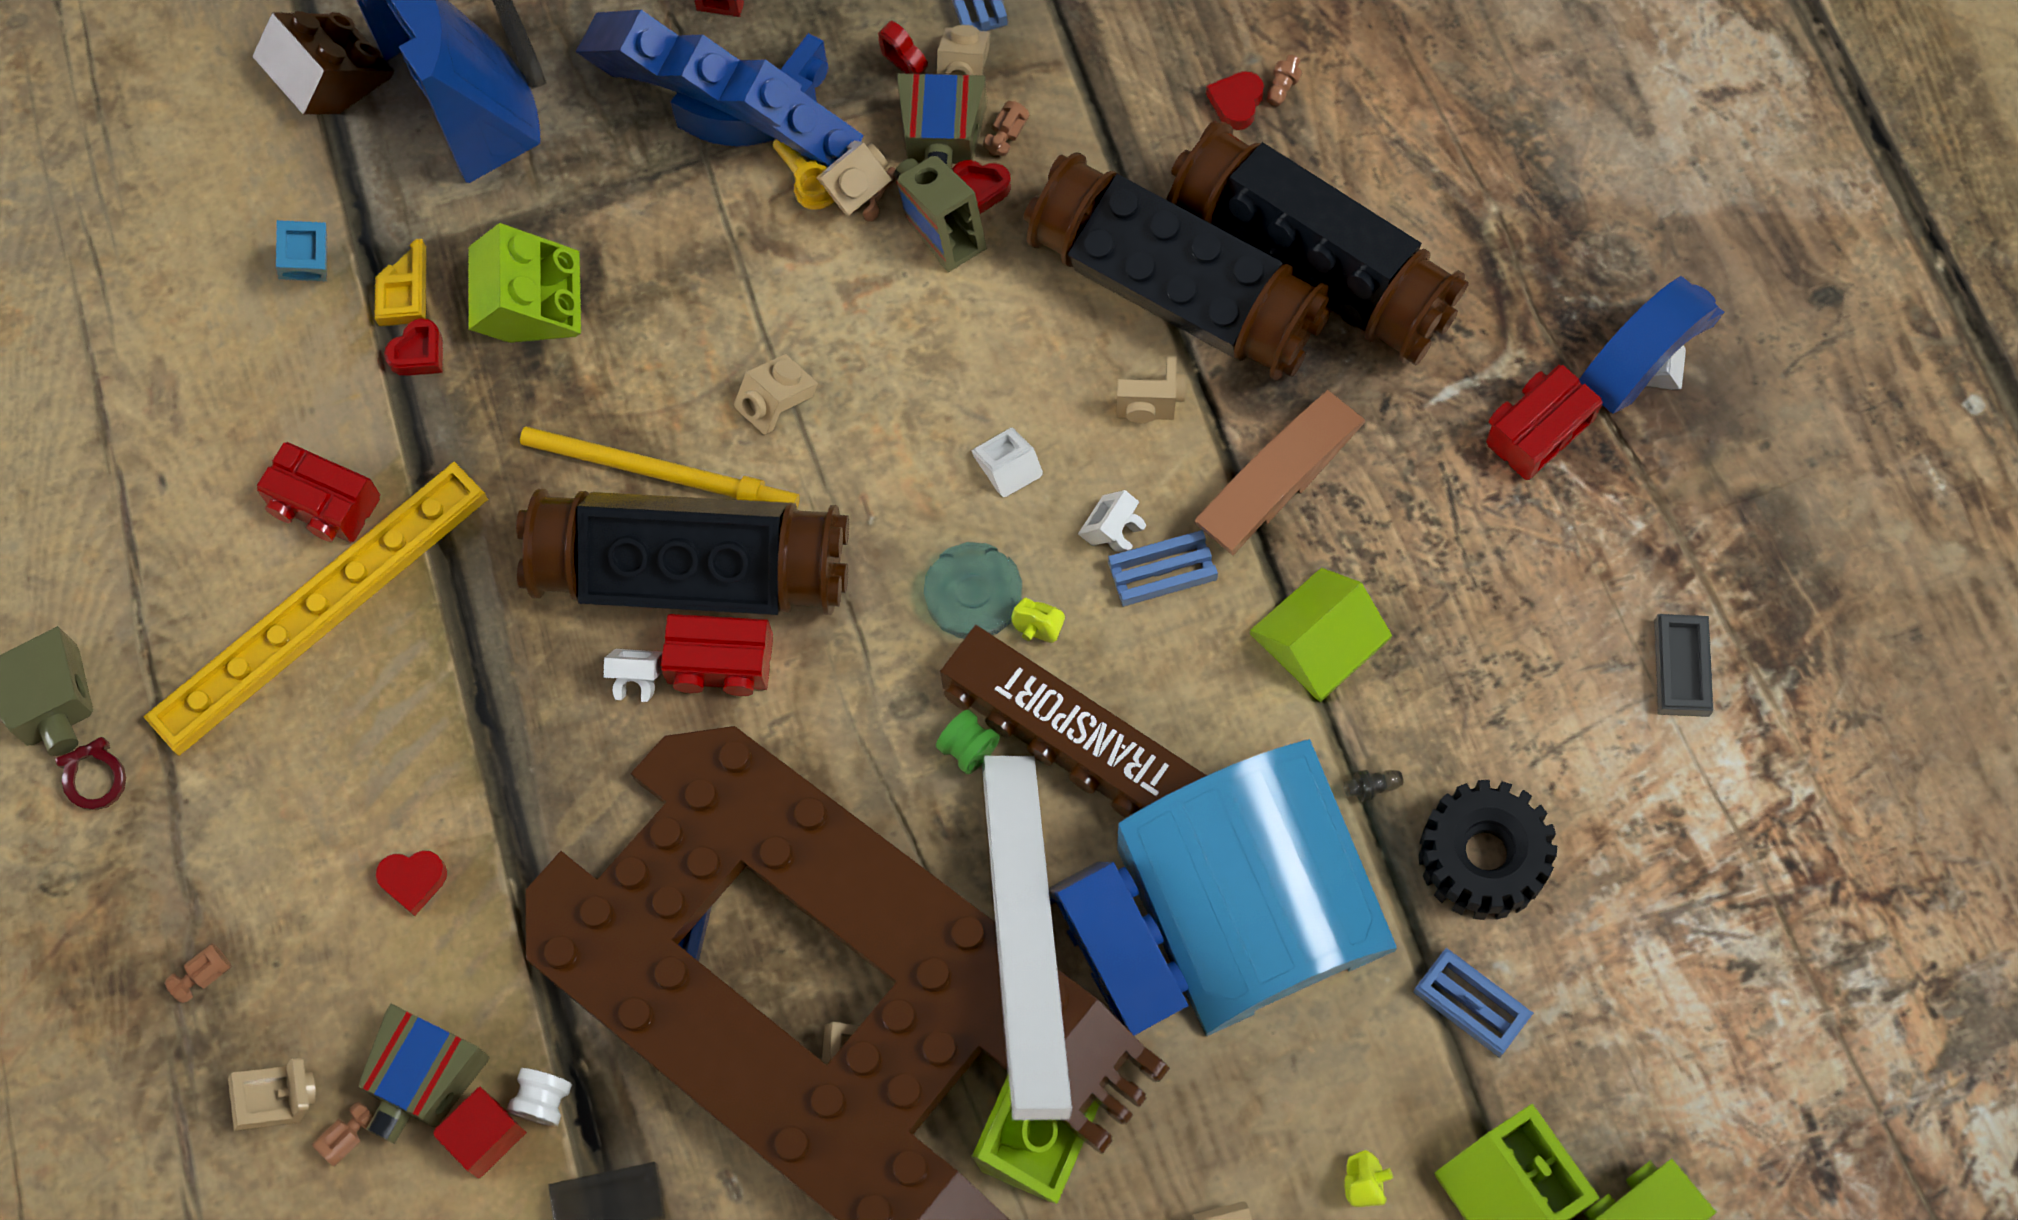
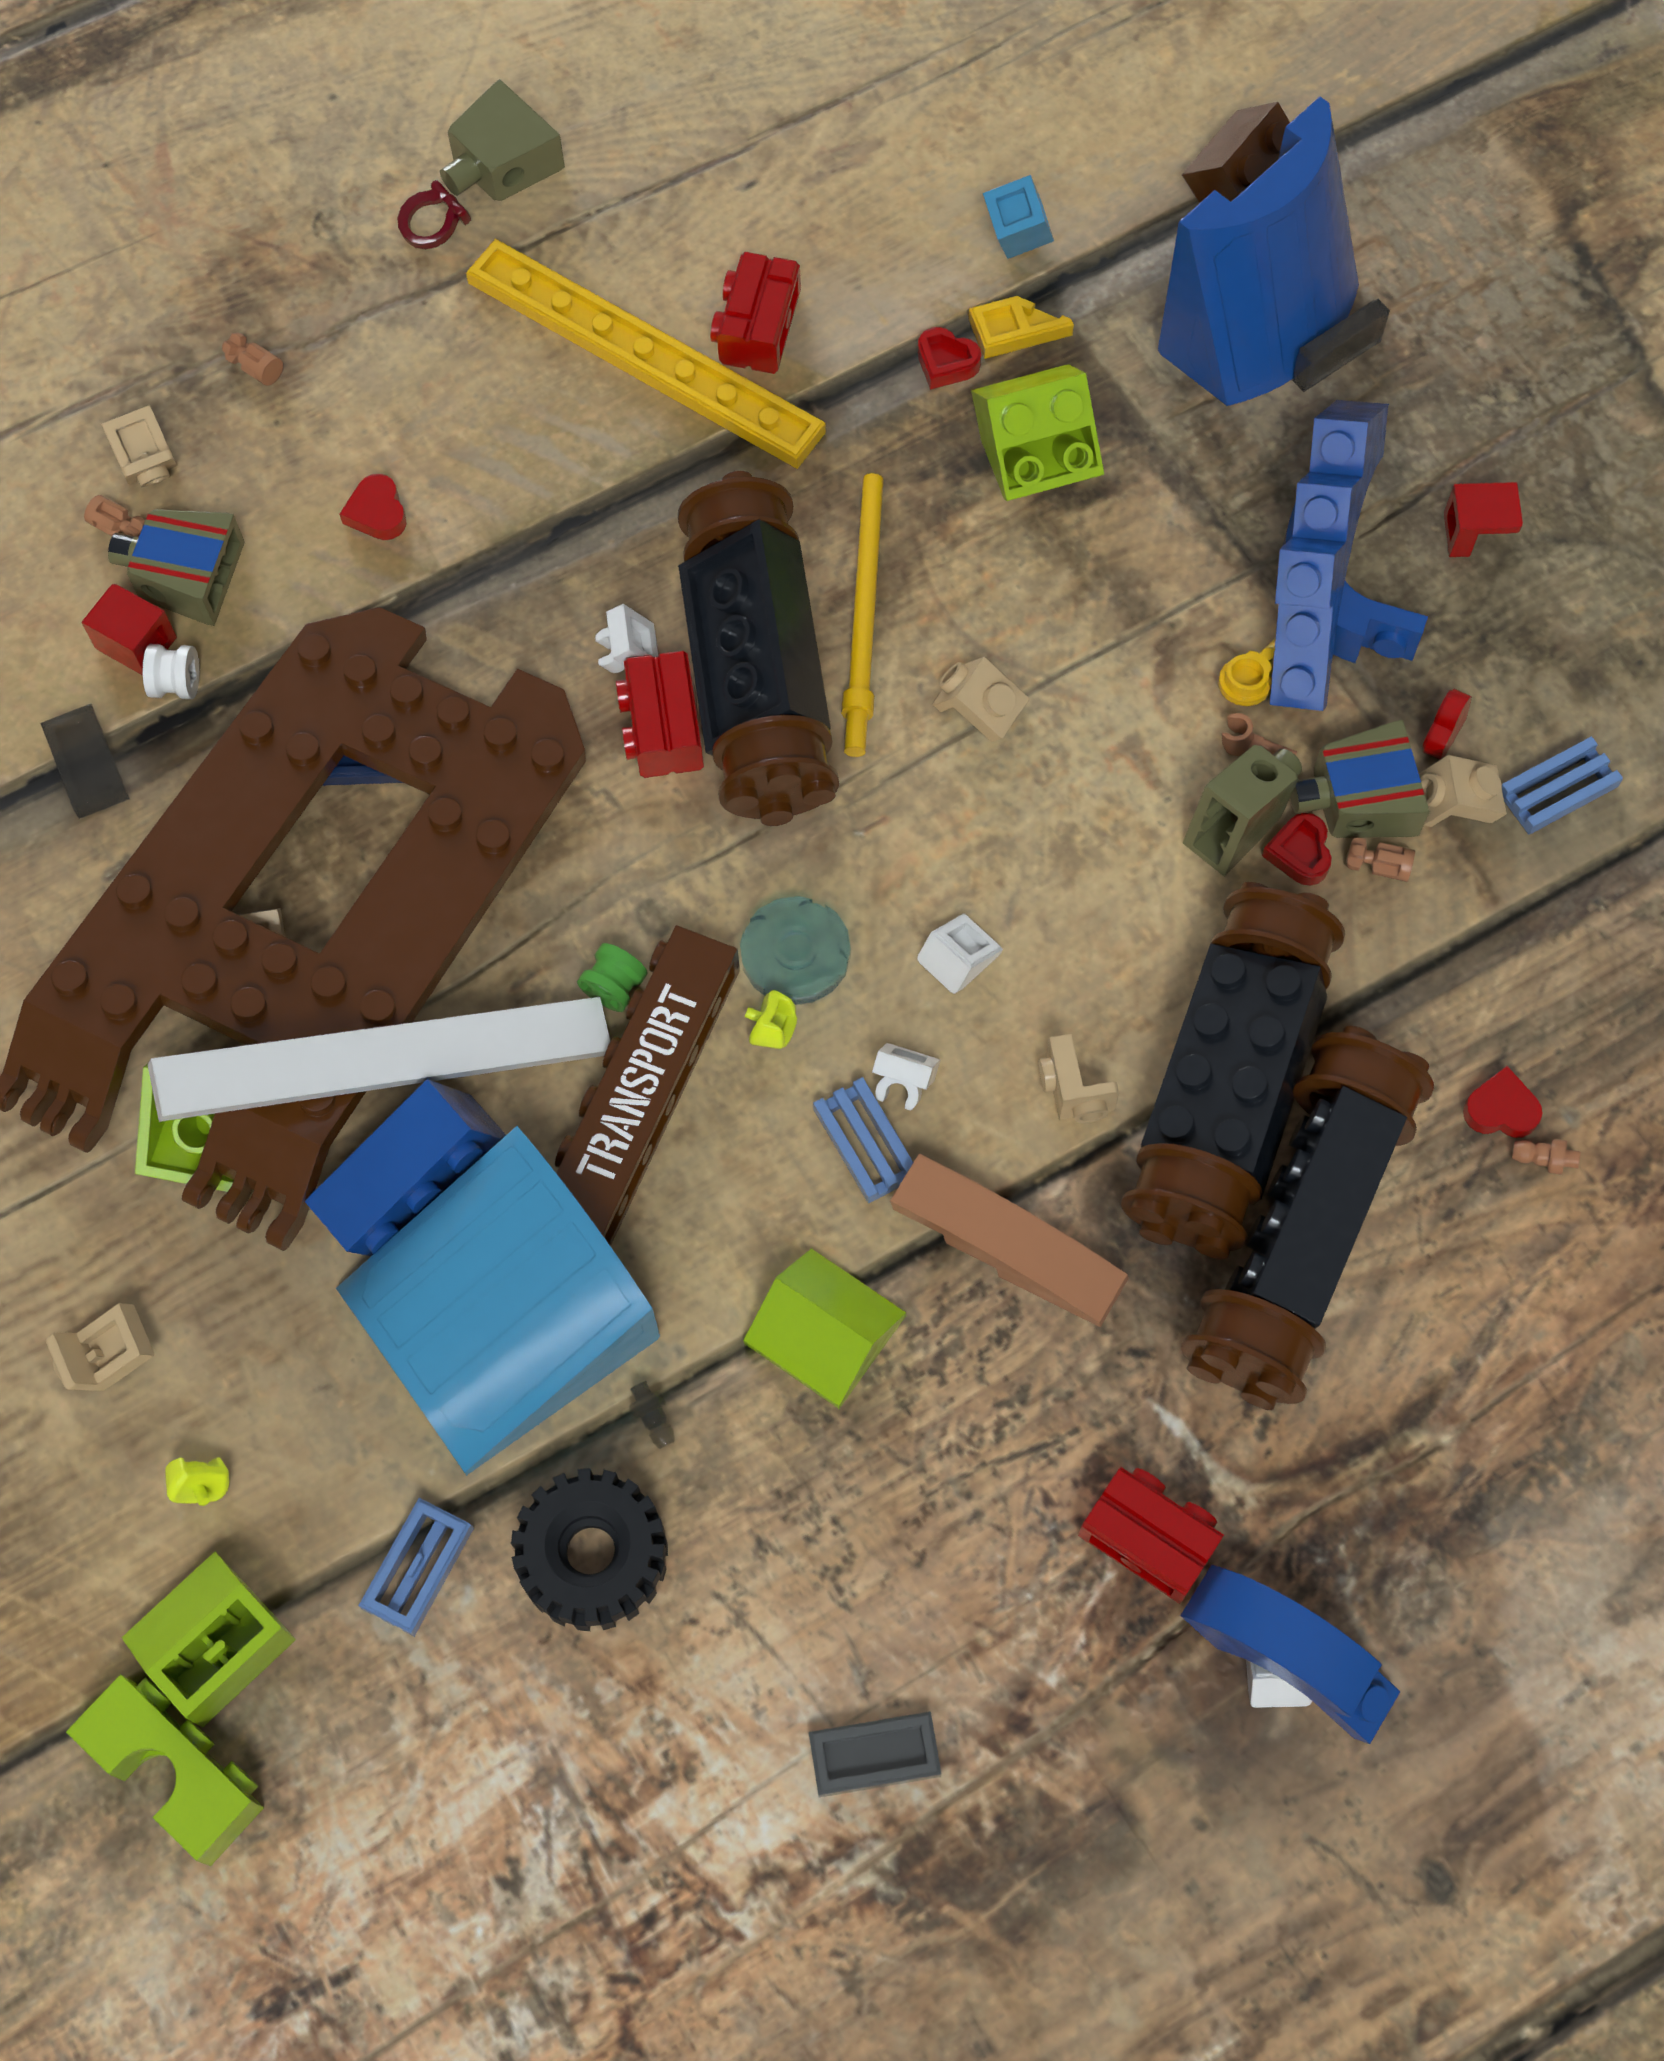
camera: 75 degrees right, 0 degrees up
(855, 176) = (1258, 708): tan bracket -> none

